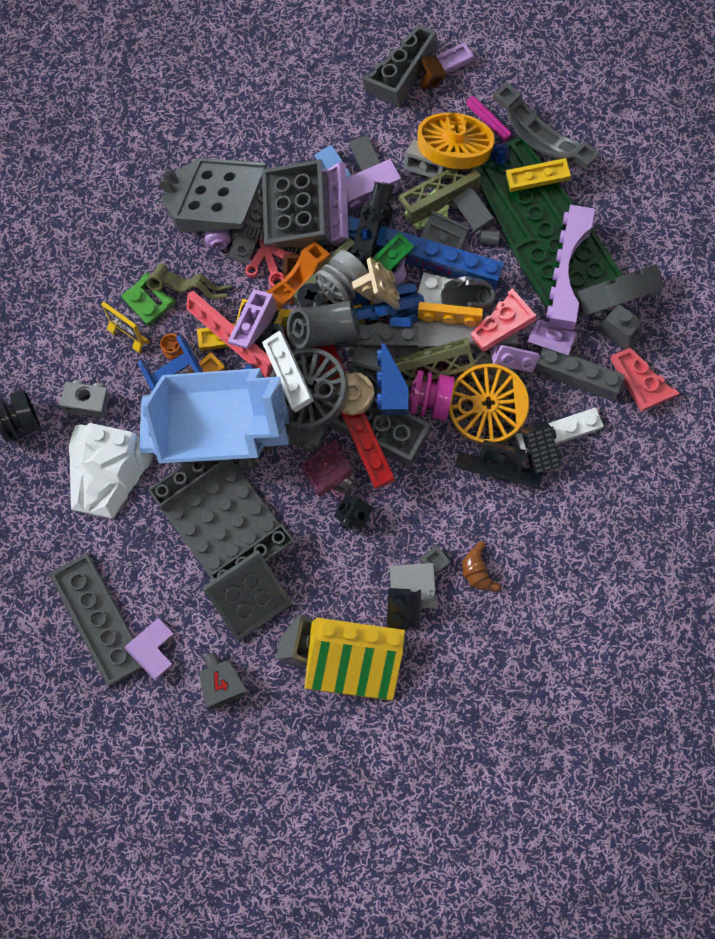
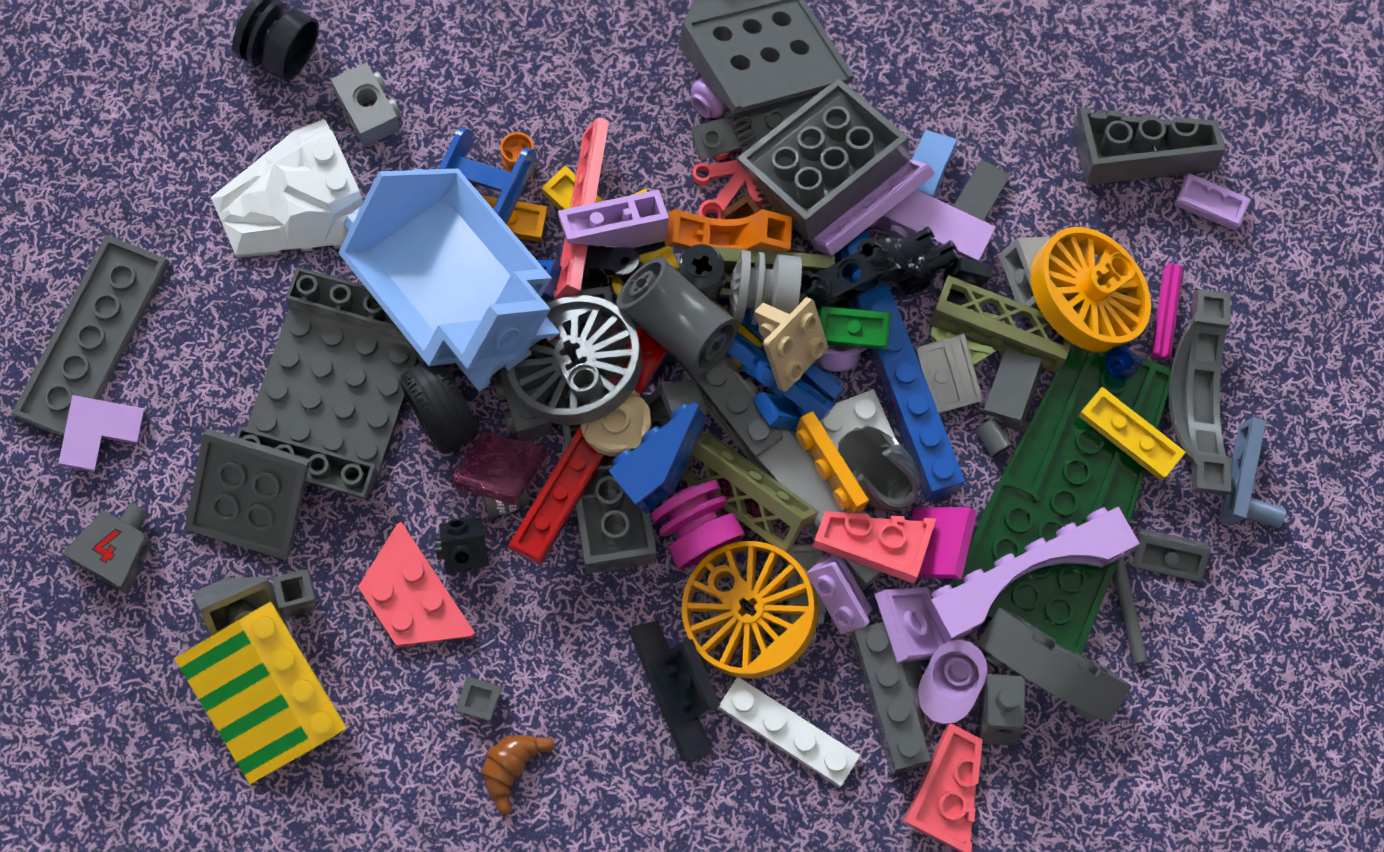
camera: 40 degrees right, 0 degrees up
(117, 320) = (490, 66): yellow flag -> none
(143, 305) = (550, 78): bright green plate -> none
(162, 276) = (605, 73): olive flag -> none
(276, 472) = (439, 406): none -> black tyre
(287, 368) = (572, 315): white plate -> none
(315, 606) = (295, 593): none -> dark grey leg
(357, 557) = (411, 596): none -> coral wing
(401, 186) = (970, 272): none -> black bracket
(403, 608) = (377, 705): black plate -> none
(416, 578) = (420, 696): light grey hinge -> none
(434, 72) = (1169, 191): reddish brown panel -> none
(527, 289) = (948, 542): none -> dark pink tile
(541, 447) = (739, 722): black brick -> none
(583, 132) = (1238, 503): none -> sand blue piece
(594, 339) = (952, 681): none -> lavender piece
(607, 202) = (1171, 555): none -> dark grey slope
(620, 242) = (1129, 613): none -> dark grey bar

